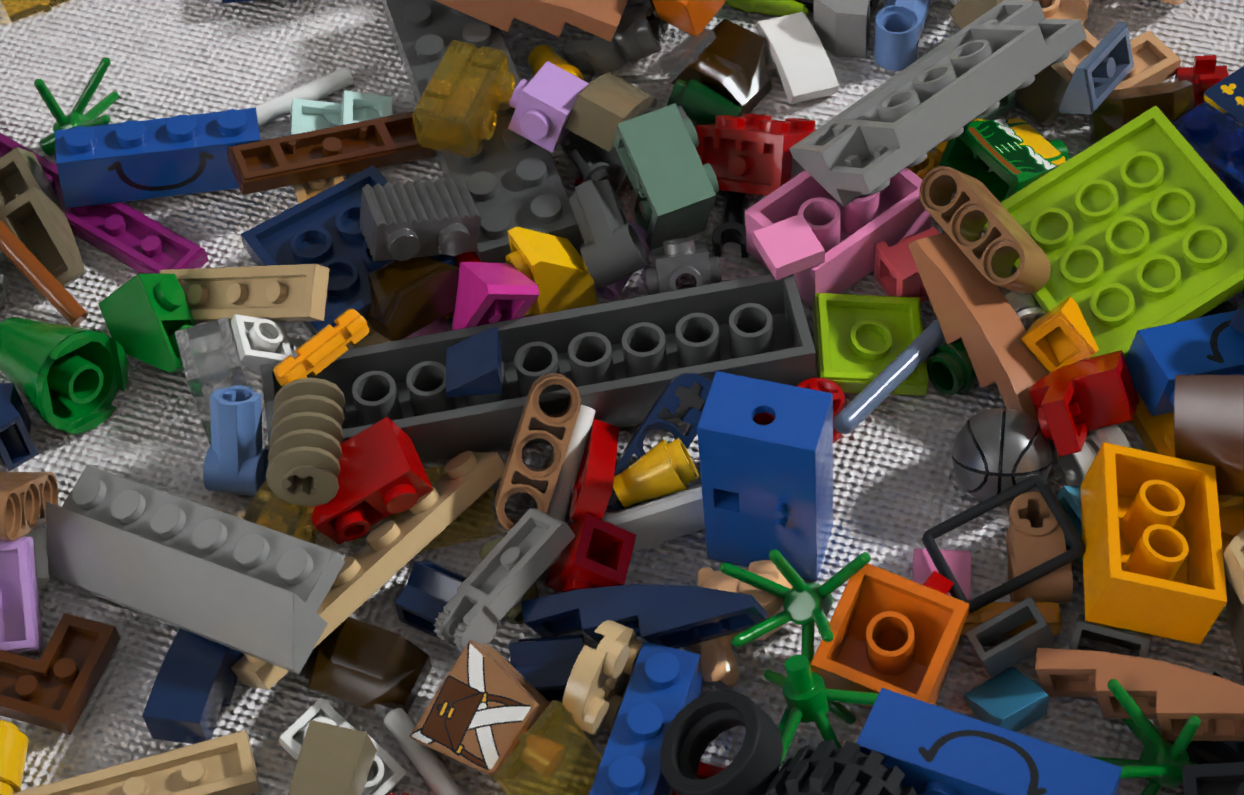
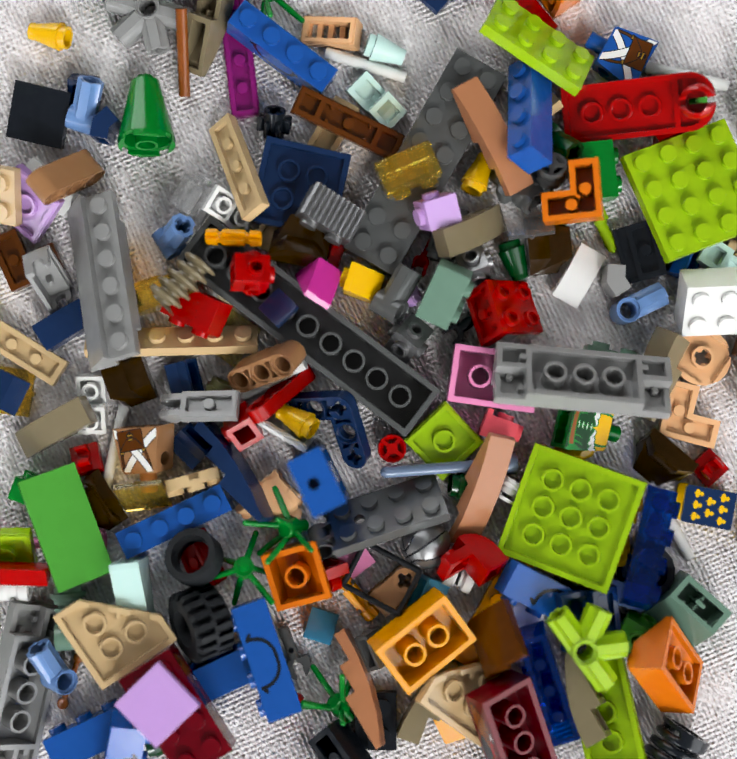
camera: 40 degrees right, 35 degrees up
(100, 644) = (48, 277): none -> light grey hinge
(145, 318) = (199, 142): green slope -> none
(216, 88) = (342, 43): none -> light nougat slope
(227, 231) = (274, 122): none -> black gear
(290, 68) = (383, 50): none -> light aqua cone
(389, 349) = (251, 273): none -> red brick
(788, 246) = (447, 382): bright pink tile -> none
(908, 473) = (386, 516): none -> dark grey hinge
(1004, 237) = (533, 448): medium nougat beam -> none
(1018, 646) = (343, 612): dark grey piece -> none
(1061, 337) = (500, 524): light orange slope -> none
(1099, 72) = (662, 430): sand blue slope -> none

